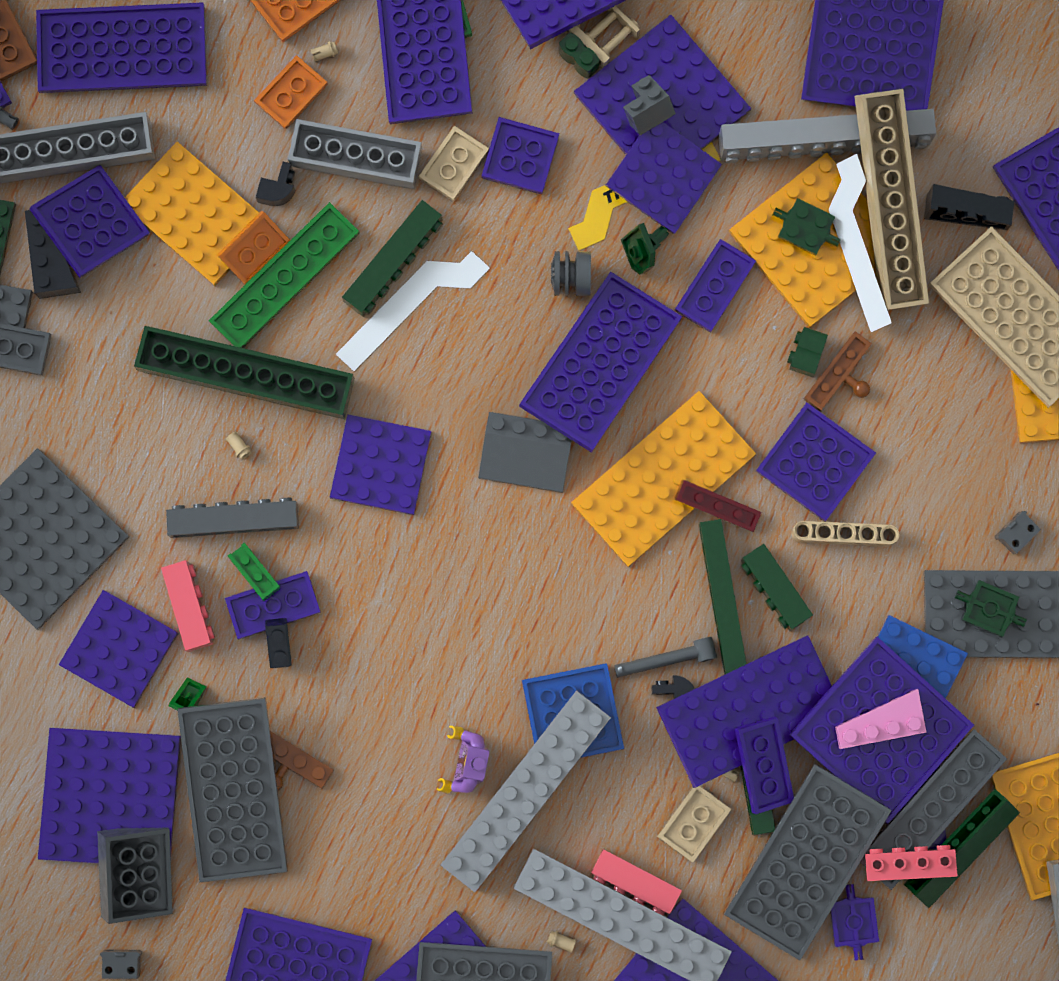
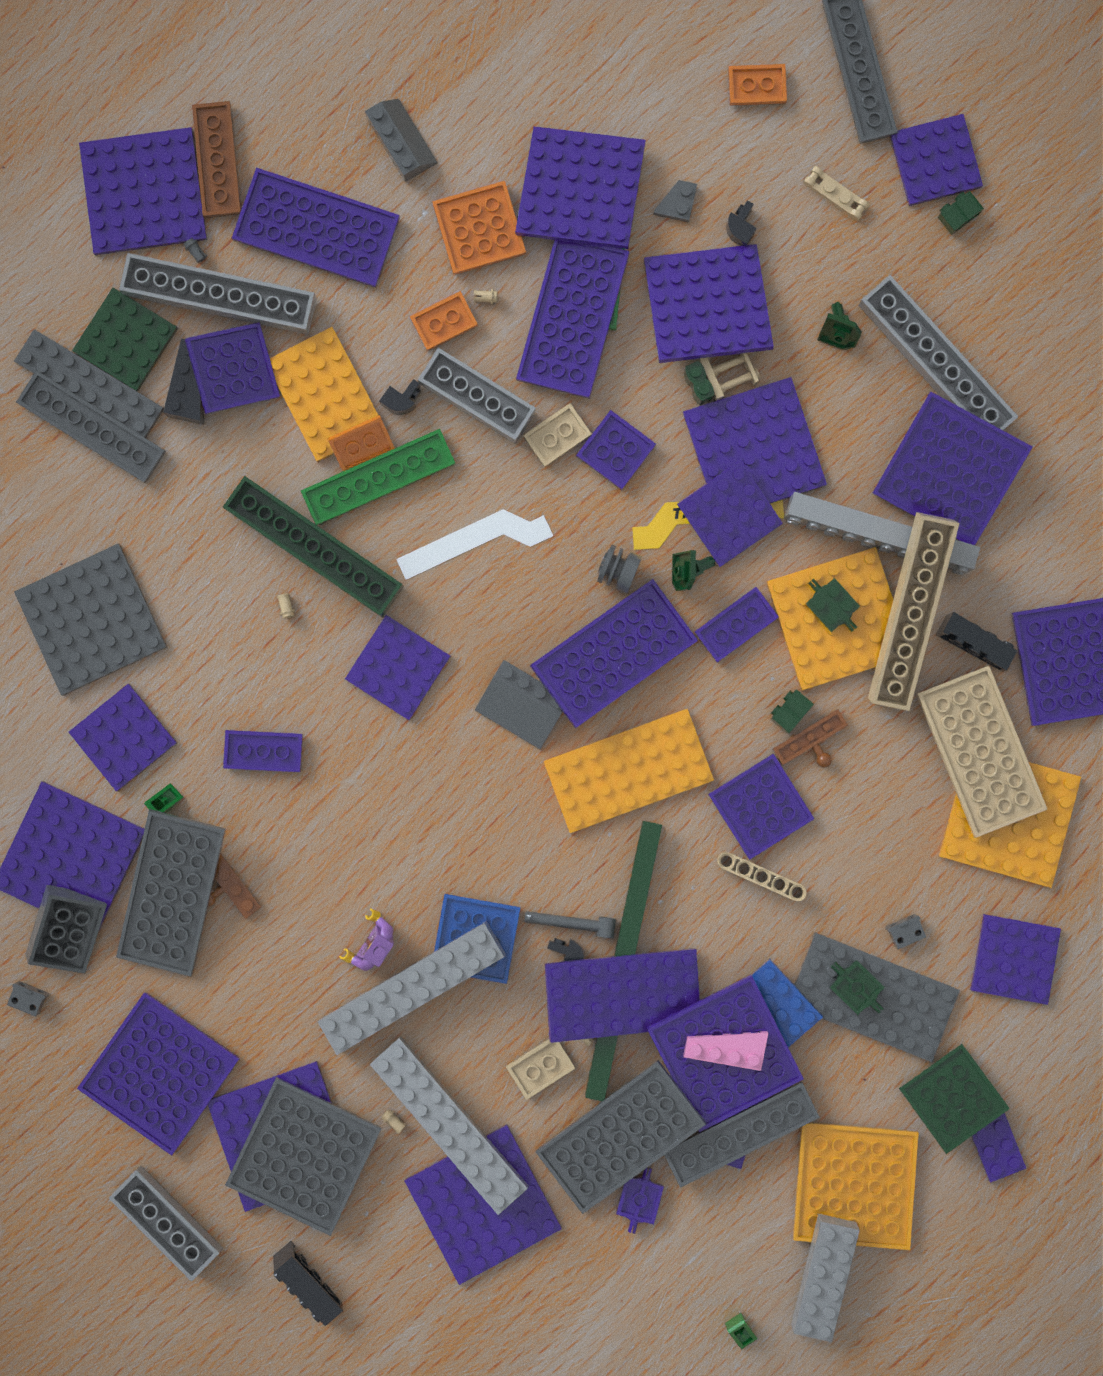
camera: 20 degrees right, 5 degrees up
(187, 606) = (192, 724): coral brick -> none
(232, 518) = (257, 666): dark grey brick -> none
(254, 572) = (257, 718): green hinge -> none
(278, 643) = (254, 785): black brick -> none
(393, 258) = (474, 496): dark green brick -> none
(636, 882) = (473, 1097): coral brick -> none
(650, 106) = (740, 453): dark grey brick -> none
(717, 505) = (664, 812): dark red plate -> none
(764, 765) = (615, 1045): dark purple plate -> none
(776, 587) = (686, 899): dark green brick -> none
(853, 245) = (865, 635): white sticker -> none
(912, 864) = (704, 1175): coral brick -> none
(969, 842) = (752, 1176): dark green brick -> none

